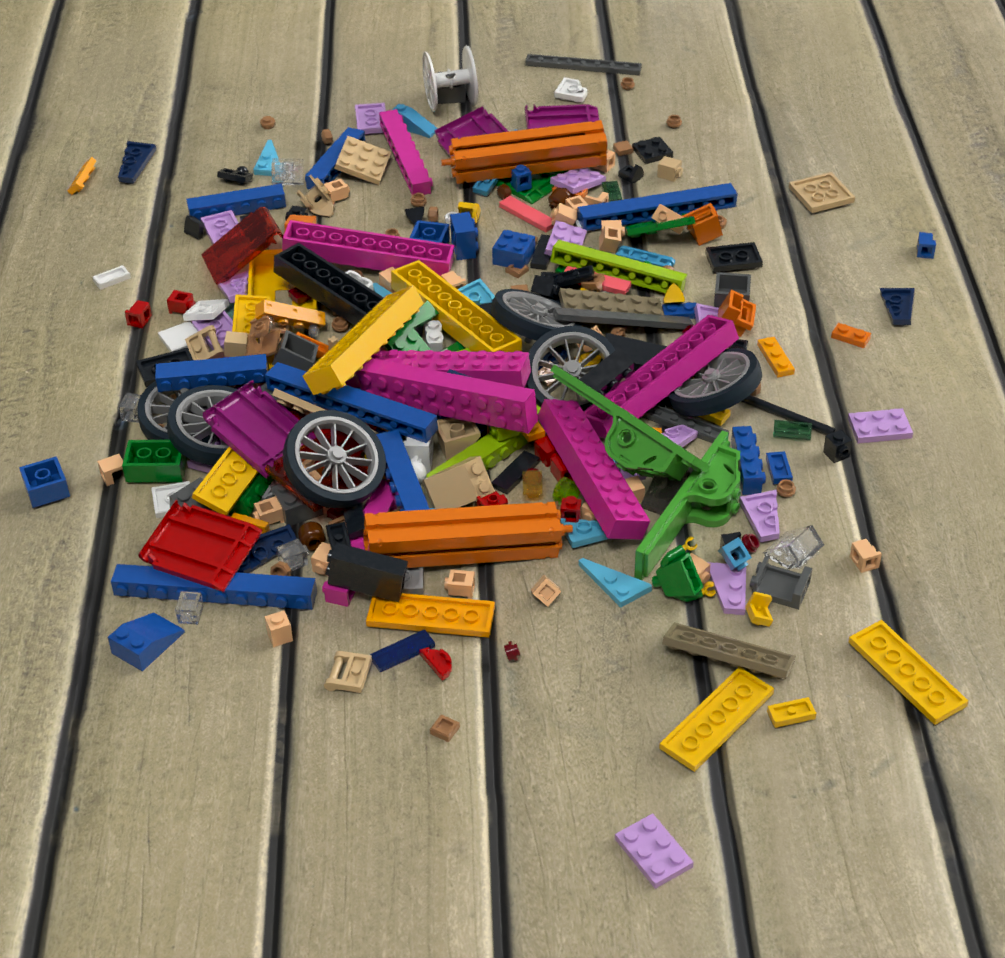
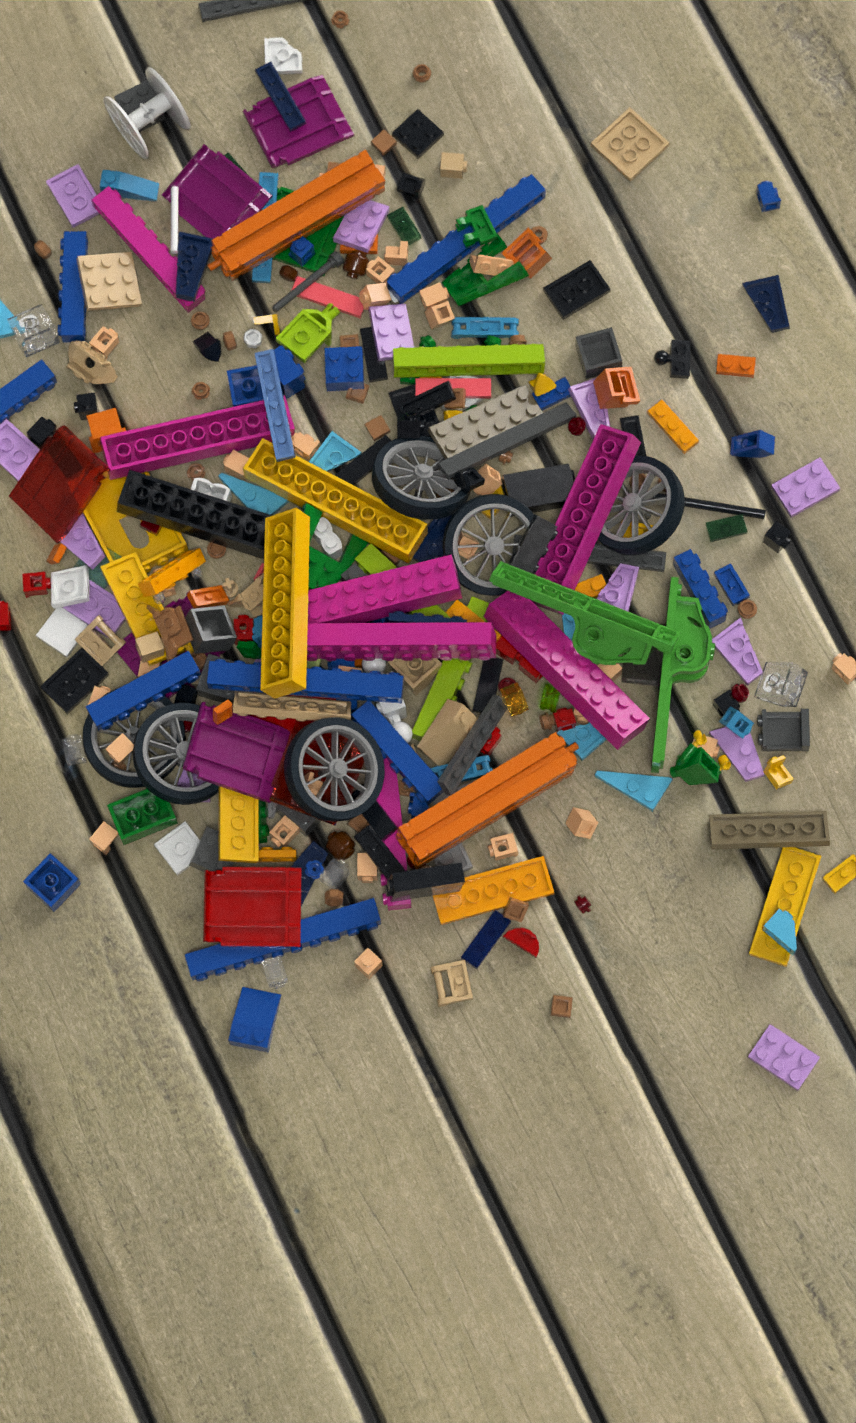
camera: 20 degrees left, 30 degrees up
(162, 401) = (120, 749): none -> light nougat panel
(210, 290) = (56, 554): none -> orange tile
(263, 390) = (222, 712): none -> orange tile
(275, 538) = (314, 864): none -> blue plate
(427, 162) = (192, 262): none -> dark blue wing
(431, 144) = (174, 219): none -> white bar
(440, 239) = (275, 405): none -> medium blue plate
(443, 633) = (515, 909): none -> medium nougat tile
(473, 490) = (472, 745): none -> dark grey plate
(498, 216) = (308, 332): none -> lime plate
(542, 195) = (334, 260): none -> dark grey piece
(557, 105) = (280, 96): none -> dark blue tile
(569, 320) = (468, 480): none -> black tile
(667, 193) = (481, 225): none -> green plate
(702, 729) = (782, 930): none -> medium azure slope
(800, 319) = (678, 358): none -> black plate
(844, 383) = (753, 444): none -> blue slope

